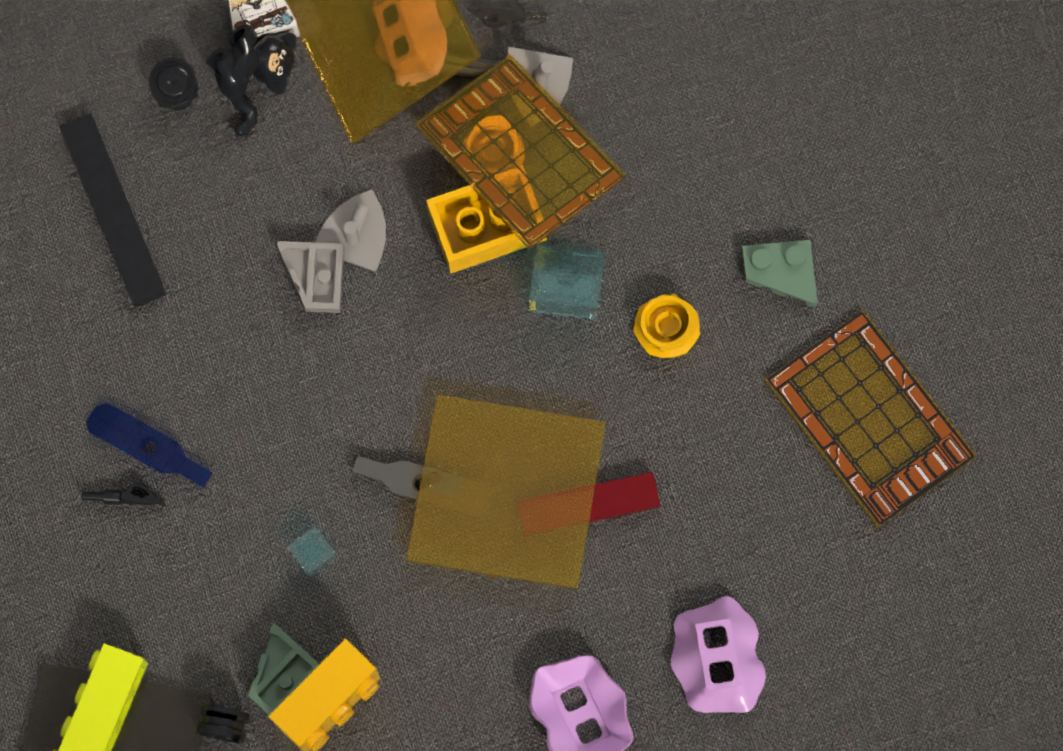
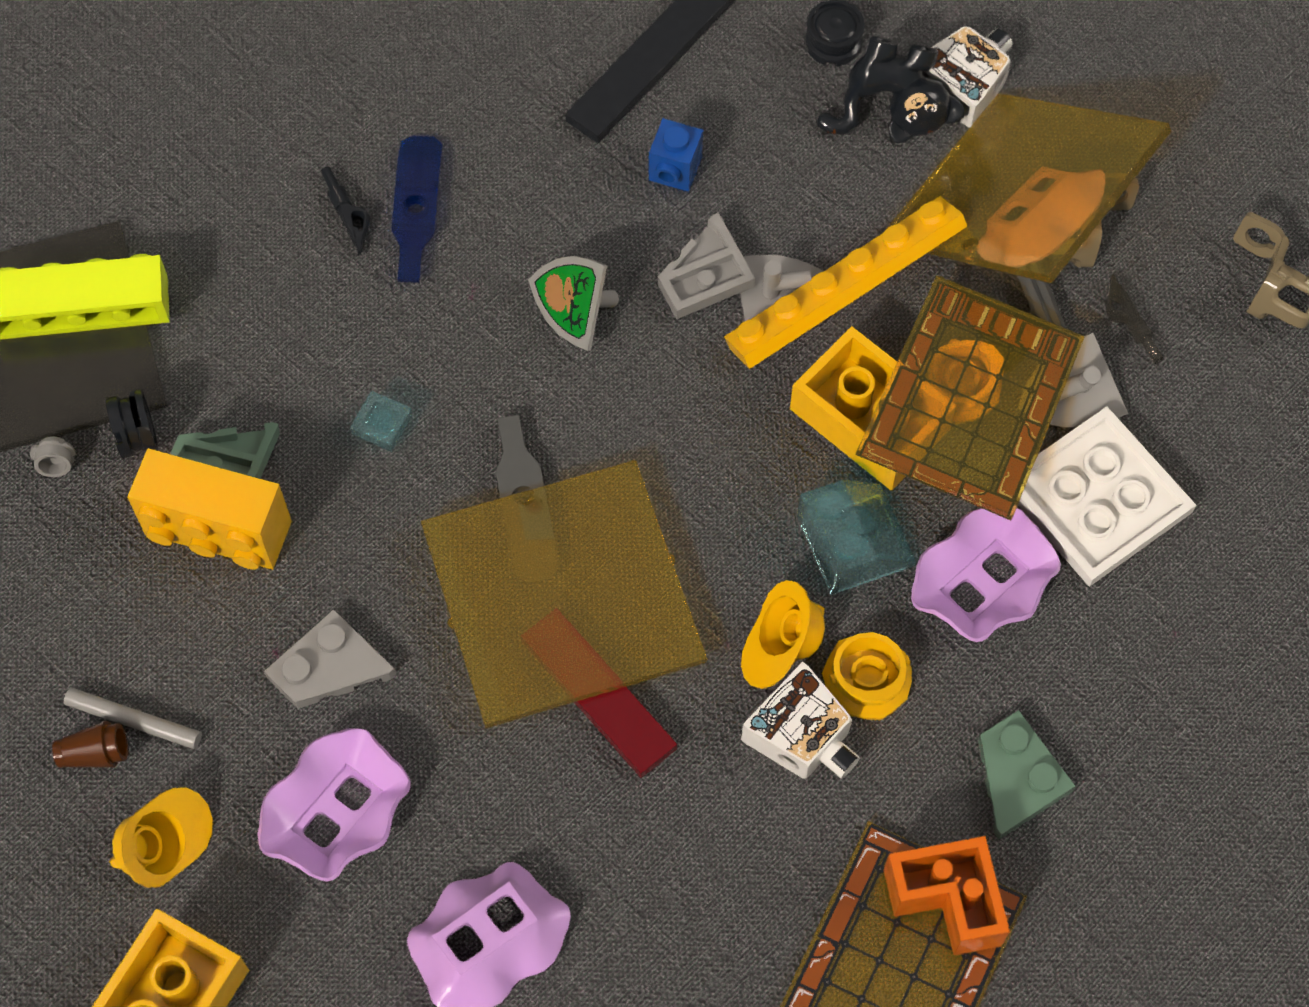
camera: 60 degrees right, 10 degrees down
(215, 246) = (675, 154): none -> blue brick
(290, 375) = (570, 297): none -> shield
(382, 185) = (845, 281): none -> yellow plate
(473, 672) = (327, 663): none -> light grey wing
(615, 367) = (784, 632): none -> yellow piece
(626, 107) = (1101, 496): none -> white plate
(665, 212) = (961, 559): none -> lavender piece
(683, 385) = (802, 727): none -> torso
(841, 345) = (960, 882): none -> orange brick

